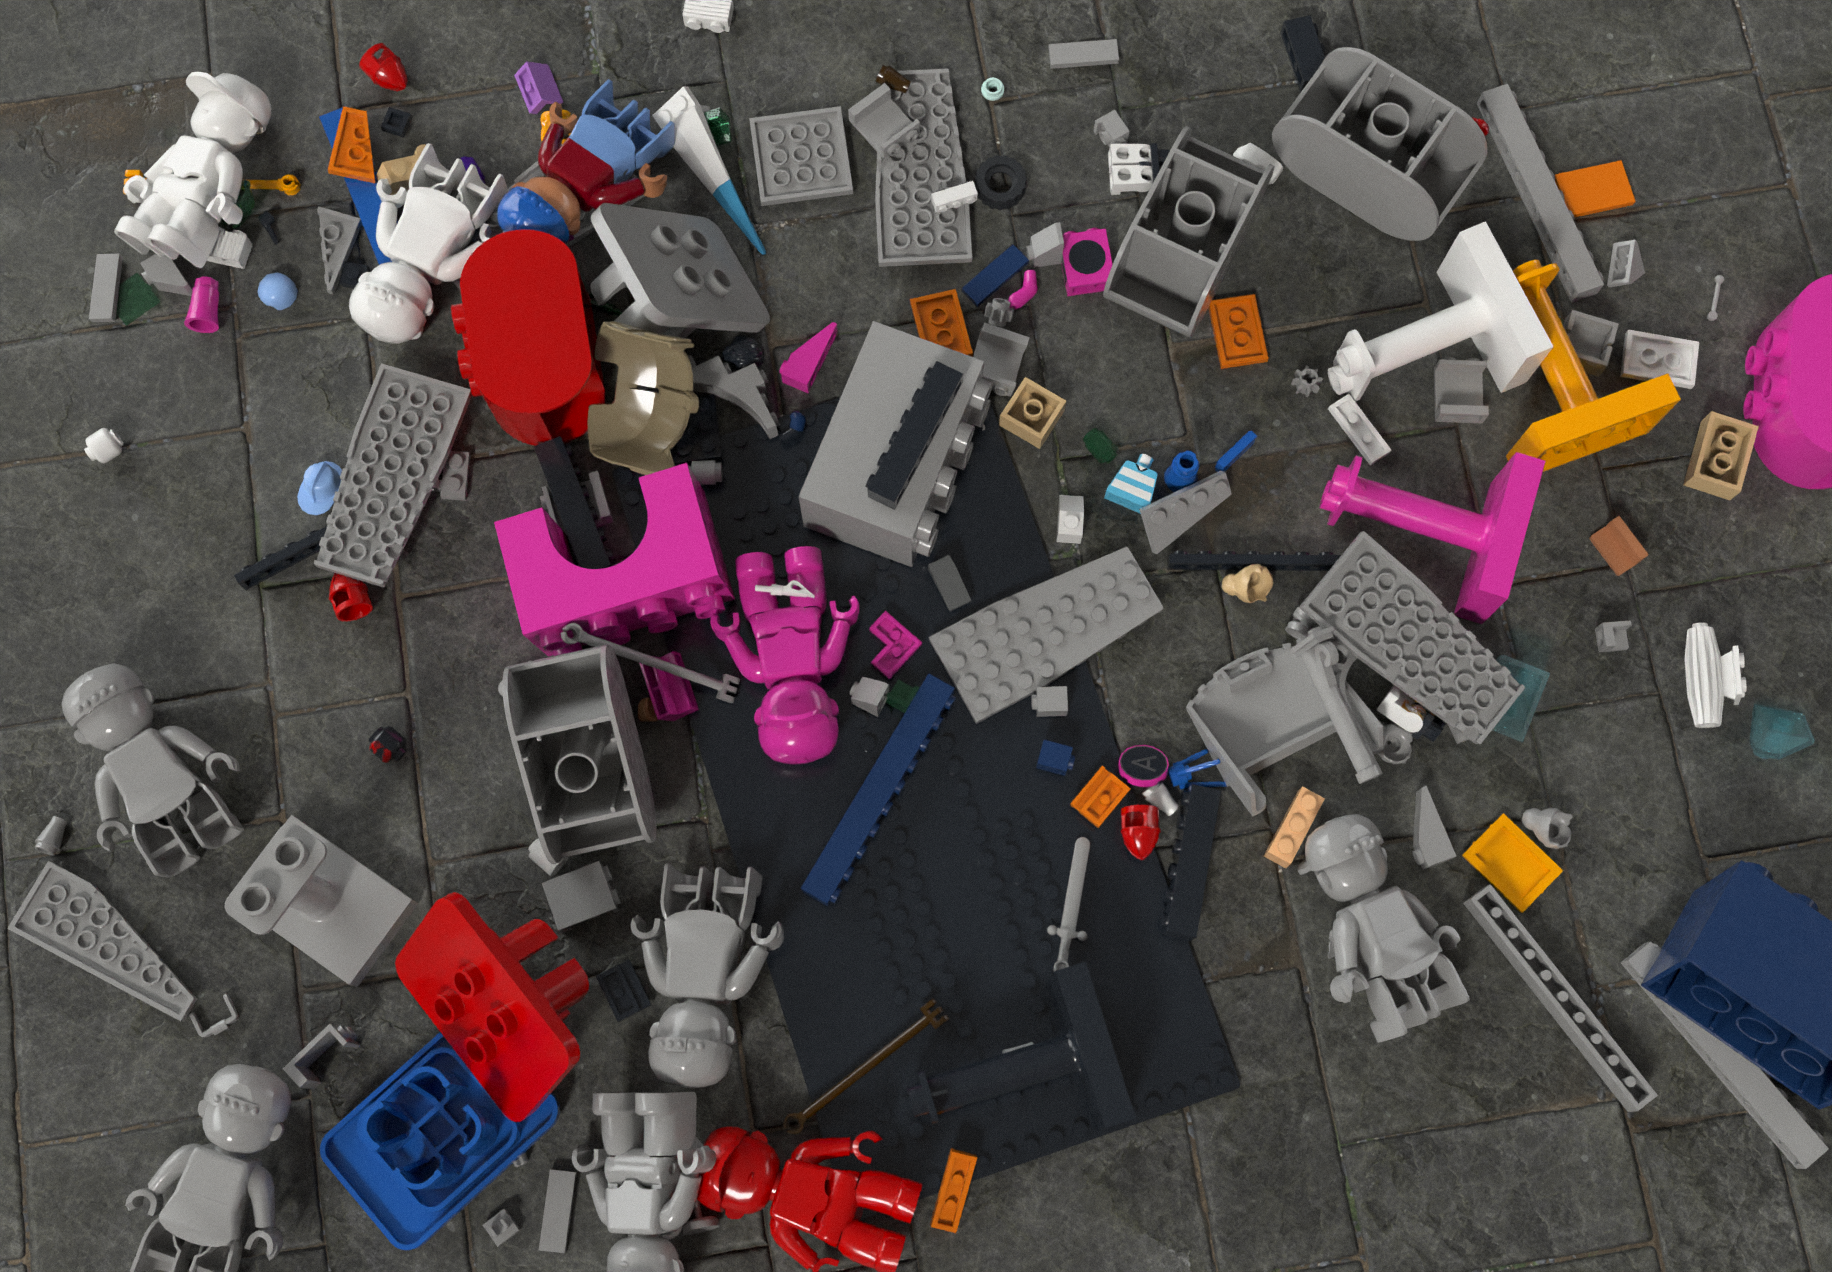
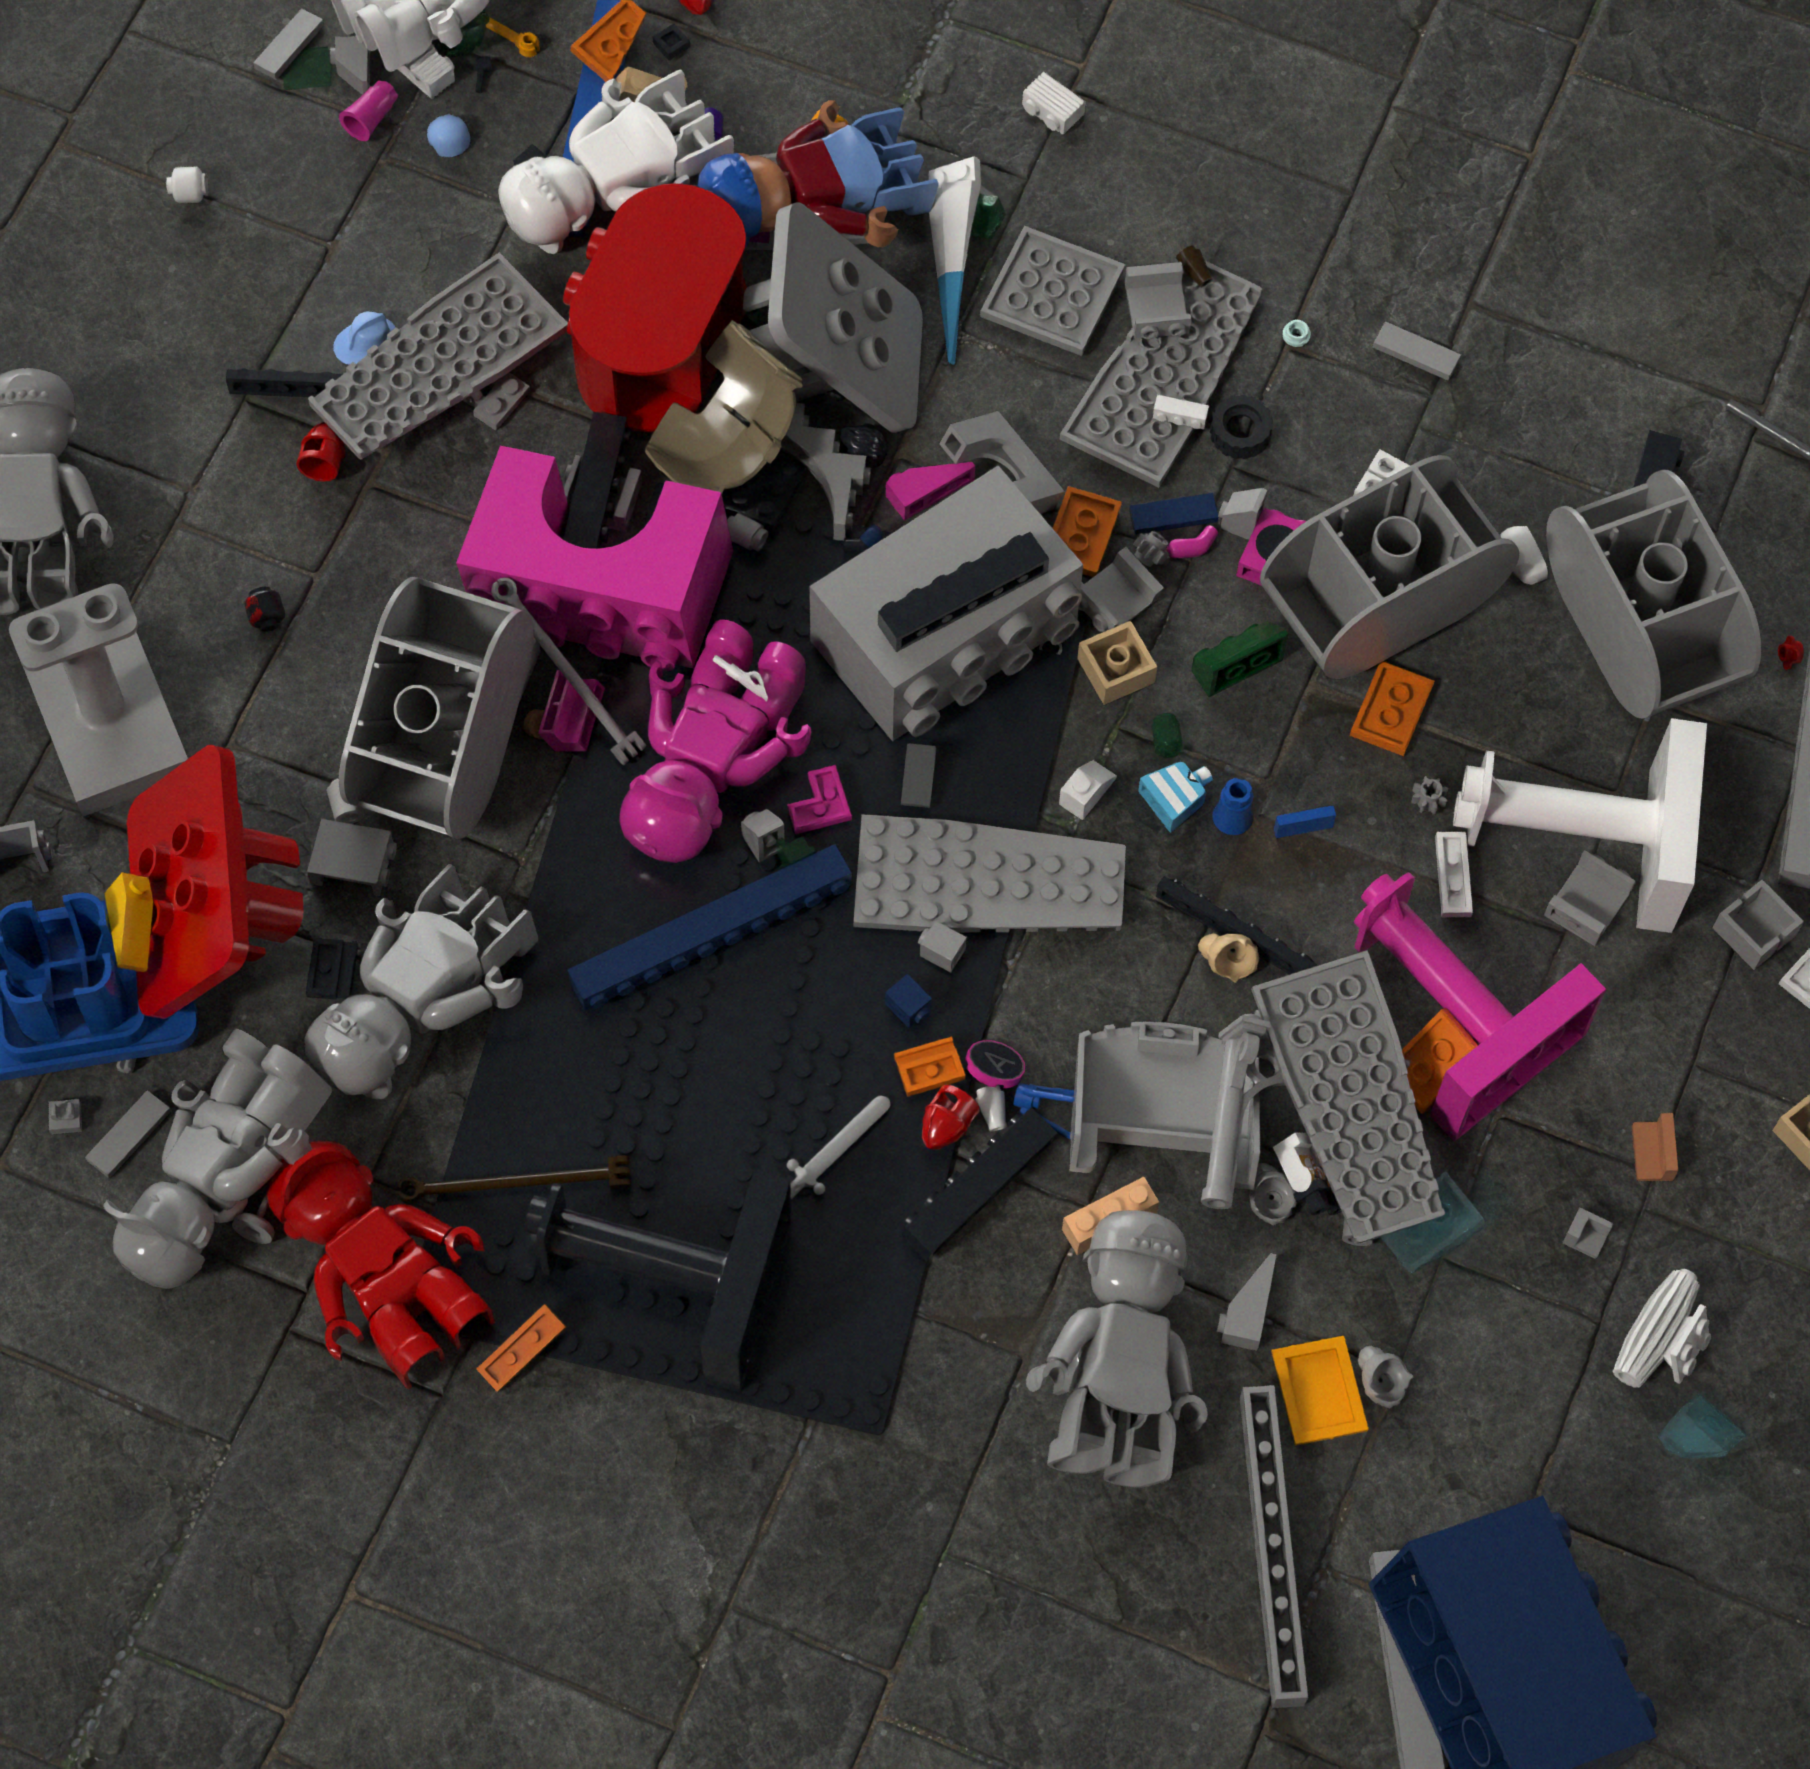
camera: 30 degrees right, 10 degrees down
(338, 238) = (540, 118): light grey wing -> none
(462, 1063) = (130, 919): none -> yellow slope
(537, 86) = (834, 80): medium lavender panel -> none
(838, 294) = (995, 439): none -> light grey arch
(1111, 129) = (1393, 437): light grey brick -> none
(1112, 356) = (1239, 657): none -> dark green slope
(1179, 511) = (1200, 843): light grey wing -> none
(1446, 570) = (1432, 1054): none -> orange tile
(1585, 420) = (1694, 993): light orange piece -> none

